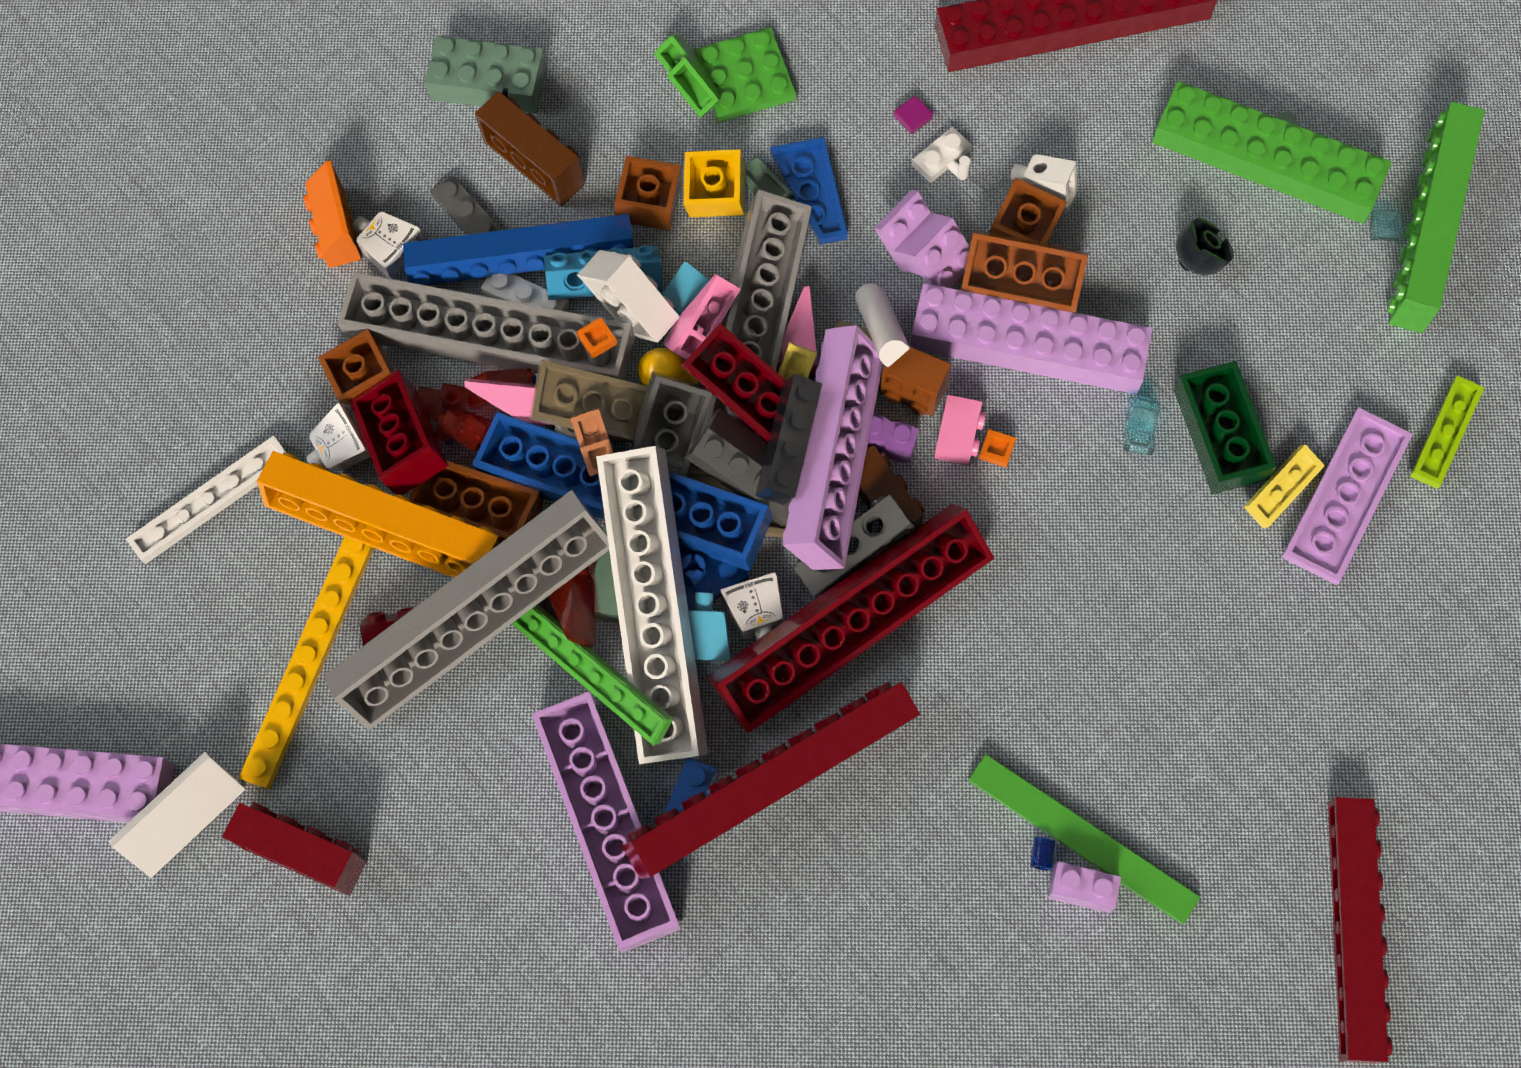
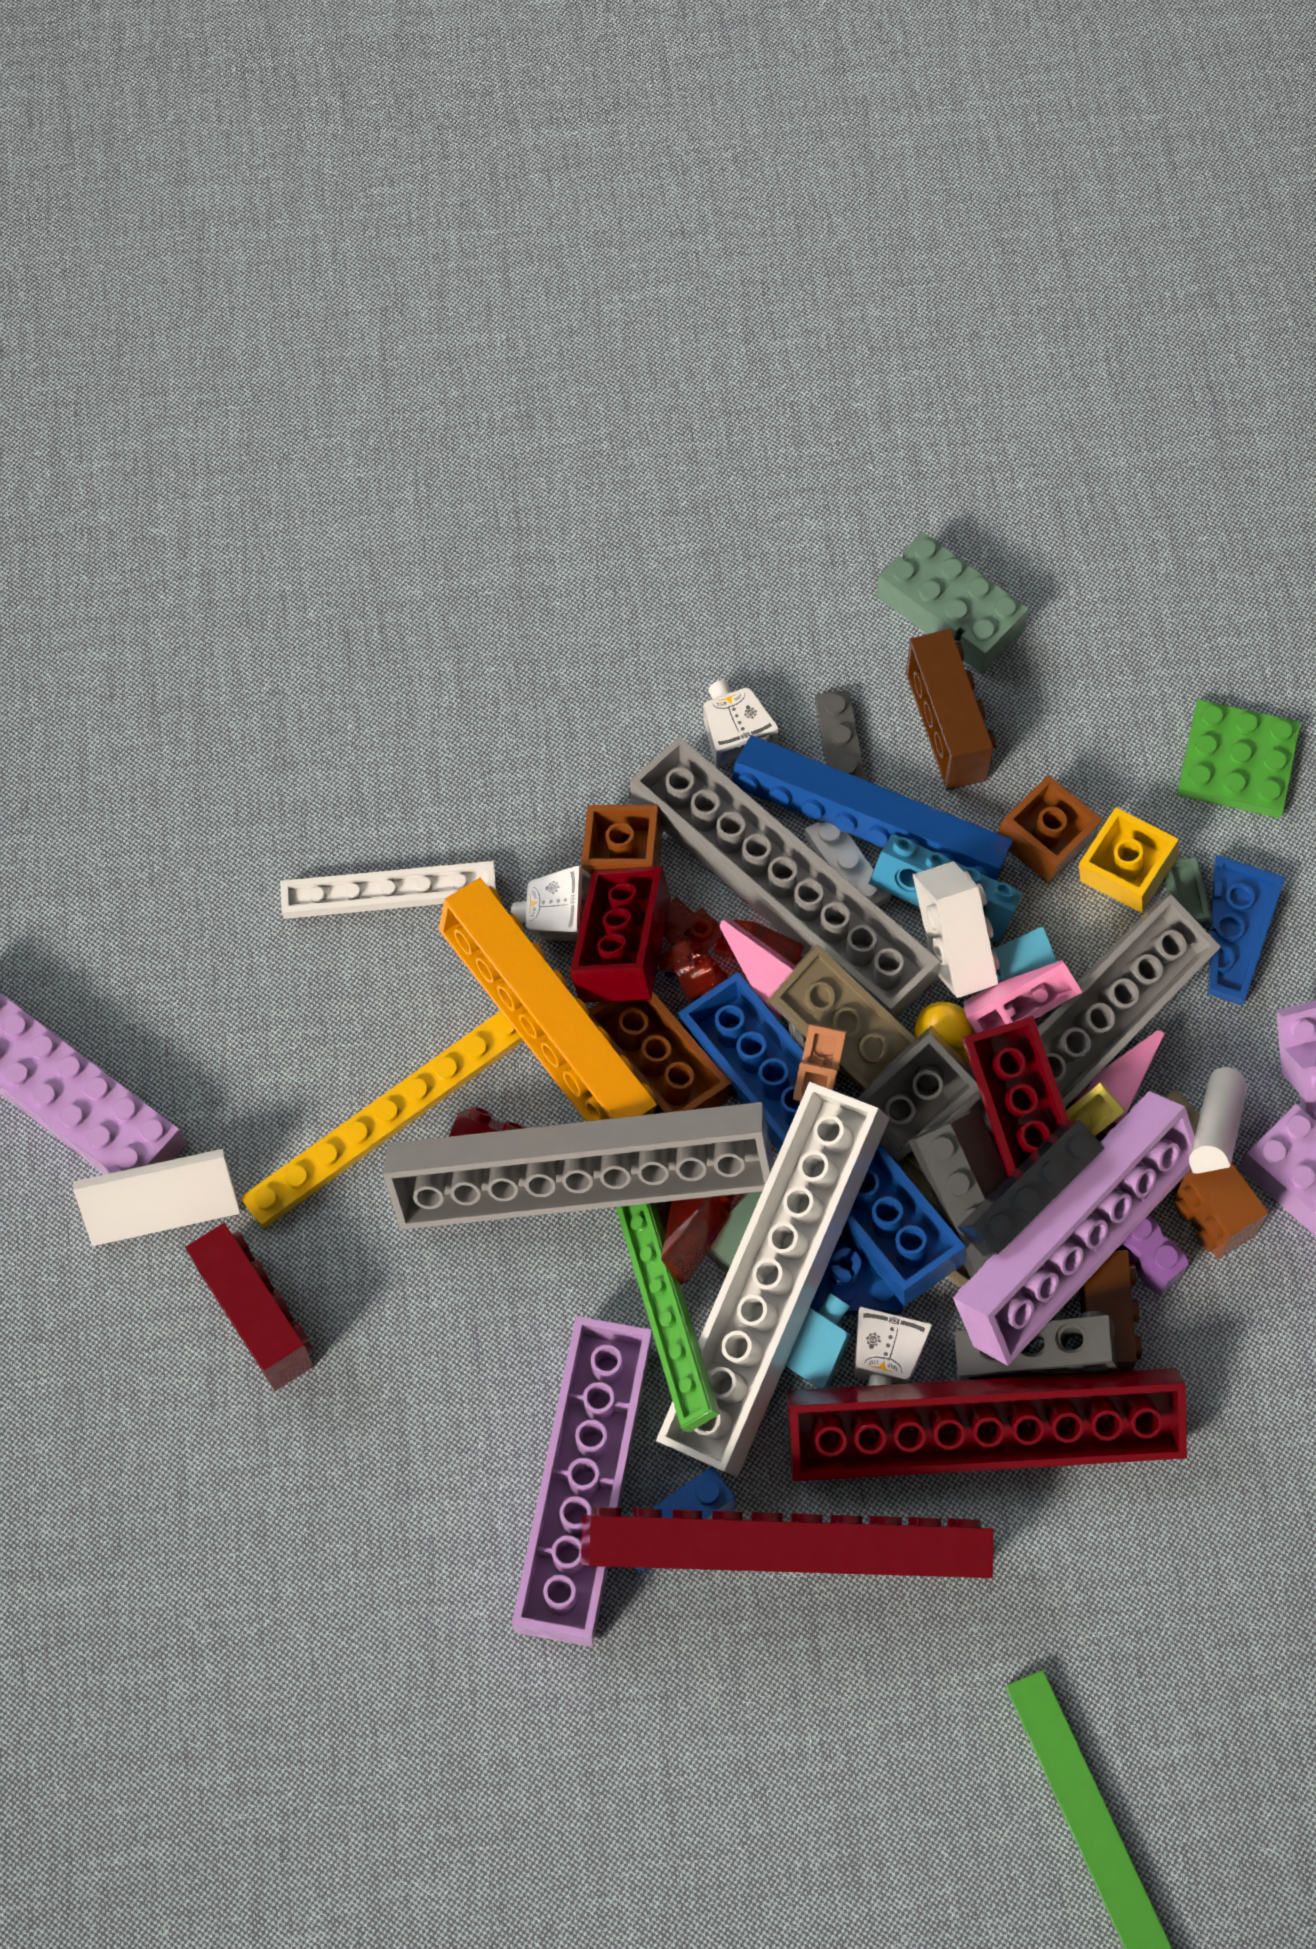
camera: 30 degrees right, 5 degrees down
(331, 217) = (693, 665): orange slope -> none
(596, 337) = (892, 954): orange plate -> none
(688, 74) = (1173, 723): bright green slope -> none
(958, 430) = (1237, 1291): bright pink brick -> none
(997, 448) = (1269, 1338): orange plate -> none
(1042, 854) = (1038, 1821): clear blue hinge -> none
(1084, 887) = (1061, 1888): lavender brick -> none

